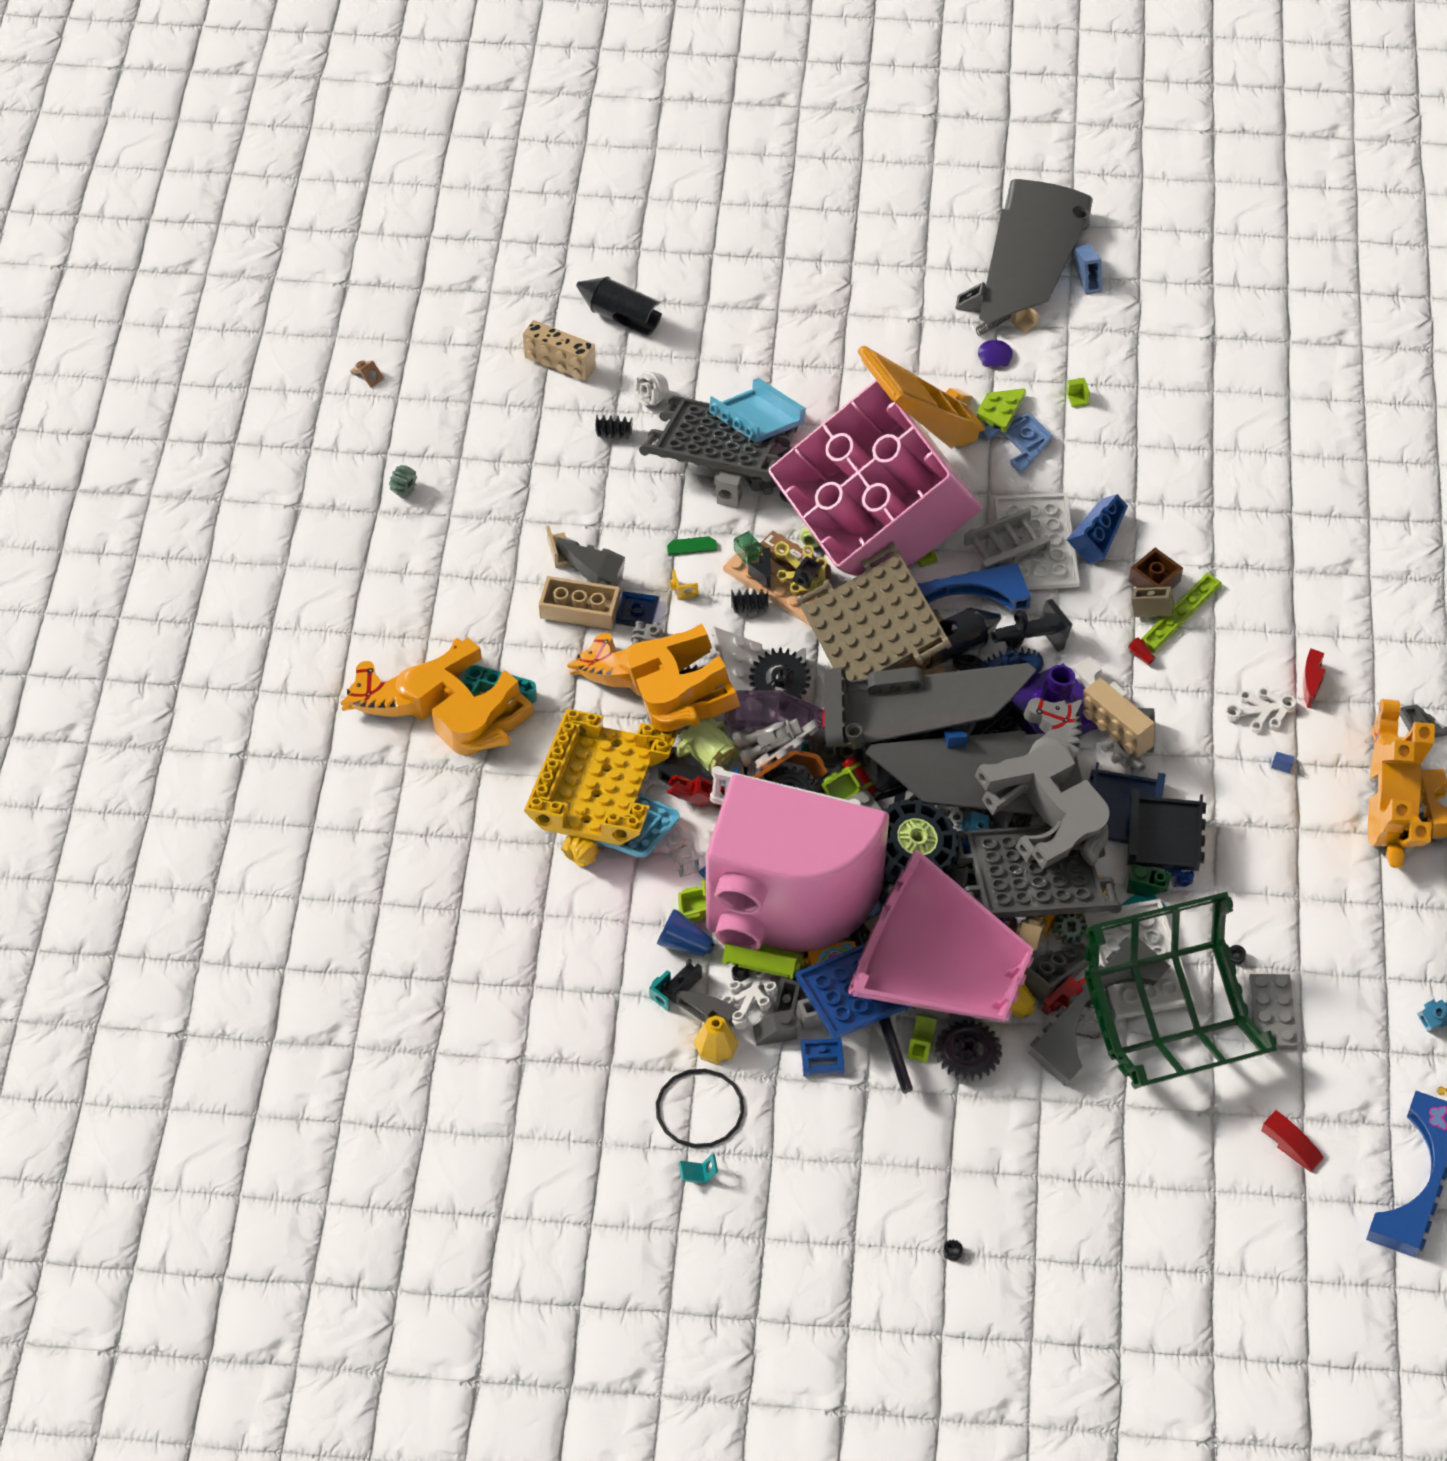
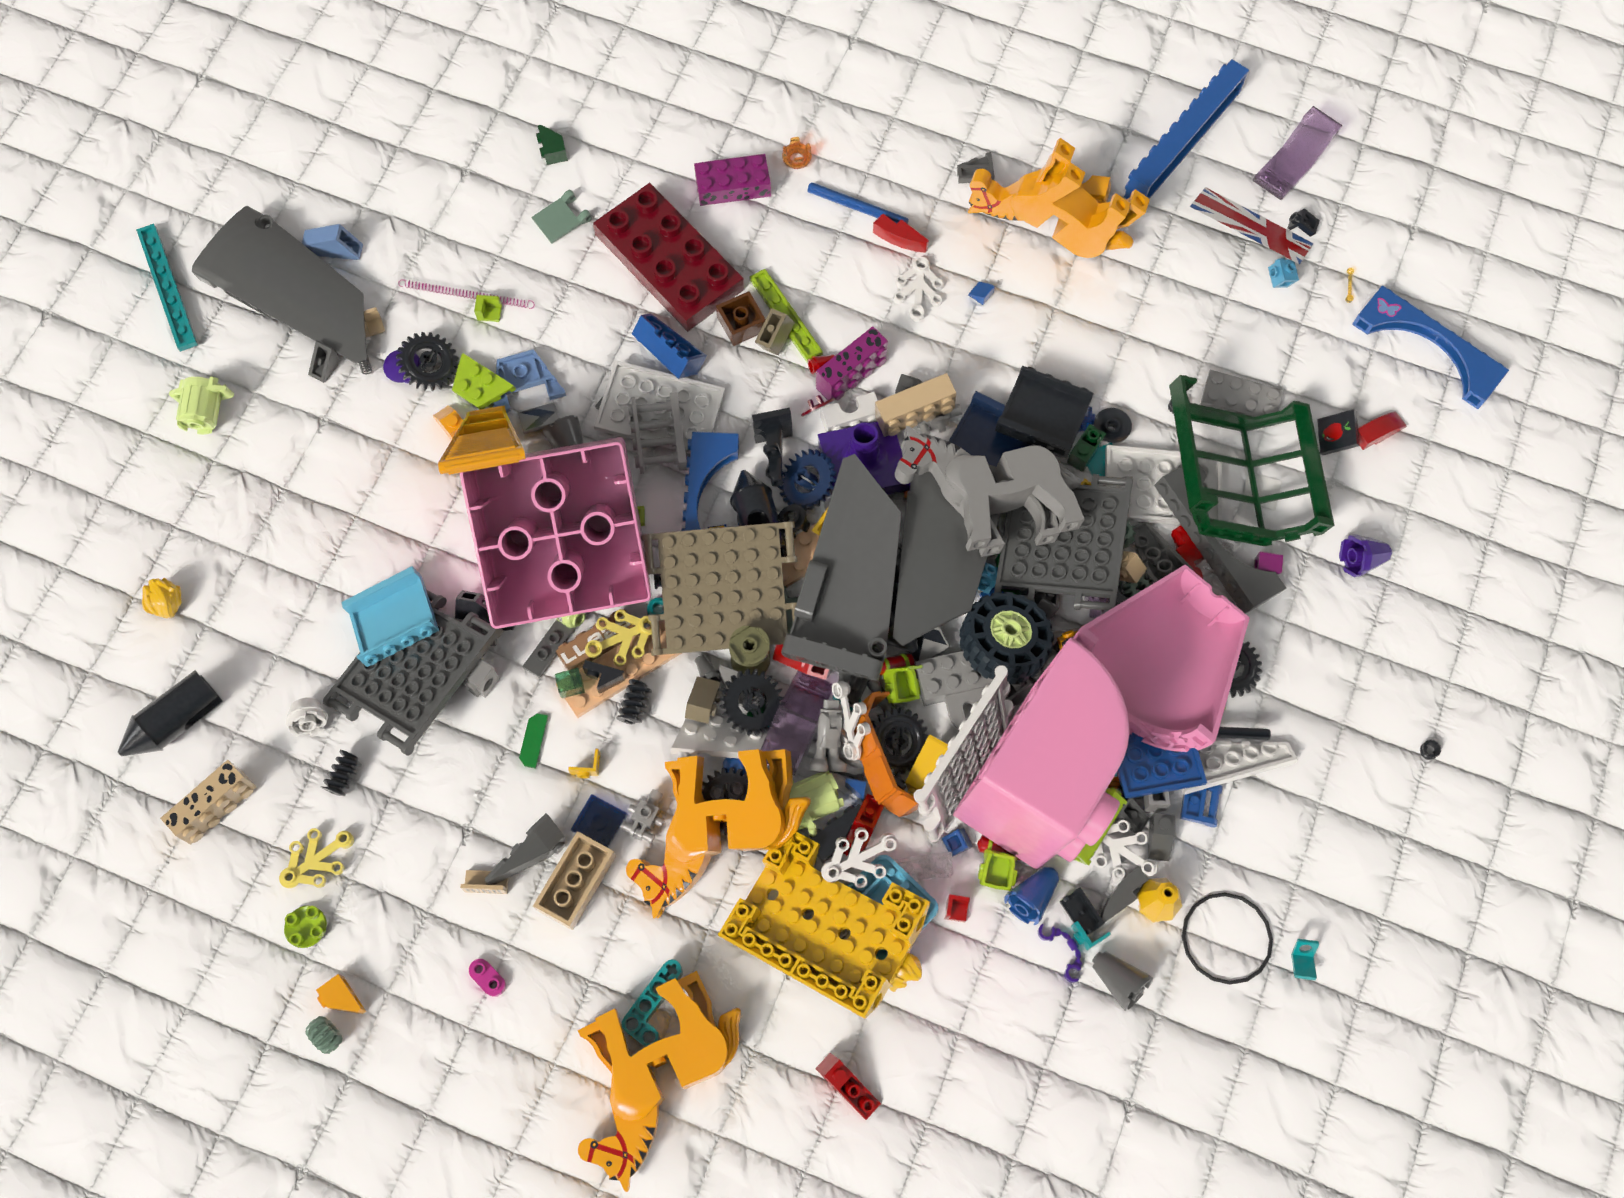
camera: 75 degrees left, 15 degrees up
(364, 368) = (129, 1036): medium nougat bracket -> none
(437, 482) = (339, 996): none -> light orange slope
(471, 840) = (848, 1085): none -> red slope
(483, 445) = (305, 926): none -> lime dish
(484, 573) = (486, 977): none -> dark pink plate
(521, 425) = (313, 860): none -> light yellow plant
(627, 1023) = (1121, 978): none -> dark grey cone
(633, 989) = (1073, 946): none -> dark purple piece
(651, 881) = (956, 908): none -> red panel
(664, 786) = (857, 859): none -> white plant
(716, 267) = (161, 598): none -> yellow hair
(763, 527) = (546, 649): none -> dark grey plate
(766, 639) = (703, 700): none -> dark tan brick
(799, 643) = (706, 668): none -> dark grey cone
(806, 572) = (631, 632): black bracket -> none
(822, 654) = (749, 649): none -> olive piece
(871, 1068) = (1234, 761): none -> white wing
(893, 231) = (199, 403): none -> yellowish green container
(955, 738) = (906, 555): blue slope -> none
(978, 477) = (564, 433): none -> dark grey cone
(987, 459) = (538, 417): none -> light grey piece
(994, 177) = (167, 287): none -> teal plate
(1000, 378) = (421, 374): none -> black gear
(1086, 374) = (462, 293): none -> piece
(1092, 652) = (813, 408): none -> dark red piece
(1092, 1063) = (1269, 562): none -> magenta panel
(1139, 1148) = (1363, 554): none -> dark purple cone
(1146, 669) = (852, 364): none -> magenta brick
(1181, 1050) = (1265, 486): none -> white sticker
(1182, 893) = (1118, 420): none -> black dish
(1196, 503) = (668, 256): none -> dark red plate
(1197, 416) = (558, 218): none -> sand green flag
(1267, 388) = (553, 145): none -> dark green slope
(1267, 1099) = (1338, 432): none -> black tile
(1303, 530) = (732, 179): none -> magenta brick
(1329, 637) = (853, 203): none -> blue axle
(1357, 567) = (797, 147): none -> clear orange piece

